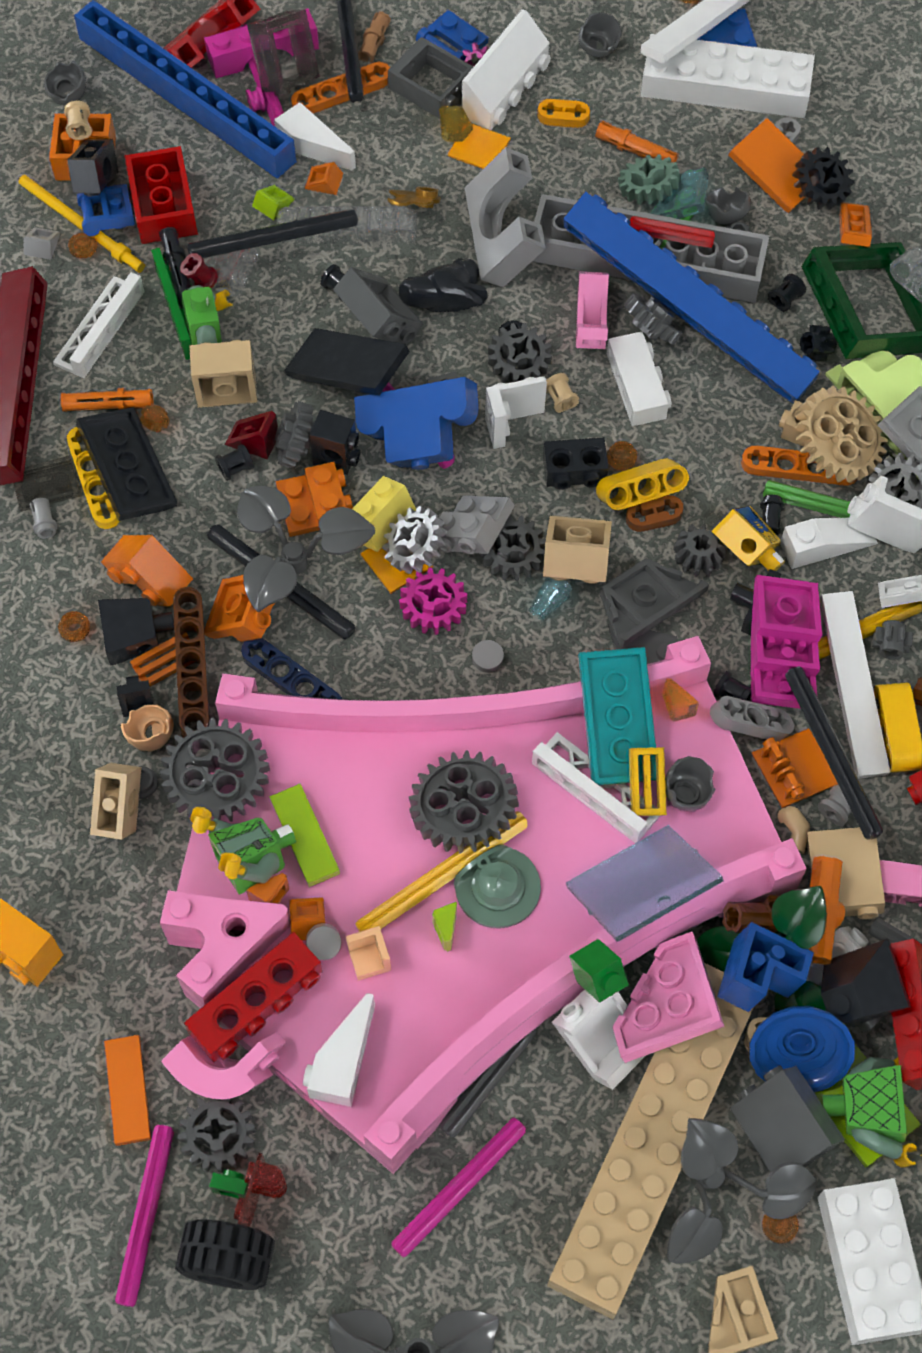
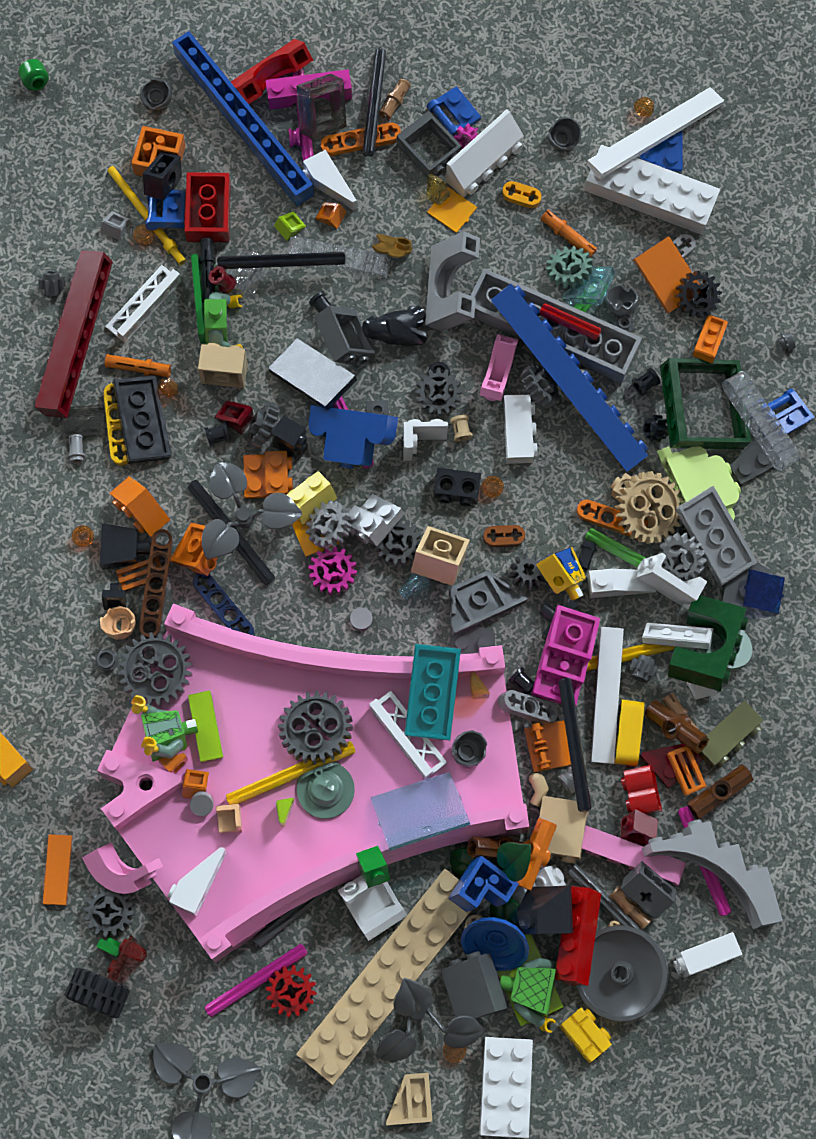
camera: 10 degrees right, 10 degrees up
(78, 120) = (157, 138): tan bush -> none
(115, 801) = (86, 673): tan brick -> none
(144, 1216) = (53, 953): dark pink axle -> none
(232, 1001) = (114, 843): red brick -> none
(523, 1204) = (305, 986): none -> red gear
(655, 487) = (509, 517): yellow beam -> none
(660, 779) = (444, 722): yellow tile -> none
(668, 1002) = (417, 893): bright pink plate -> none

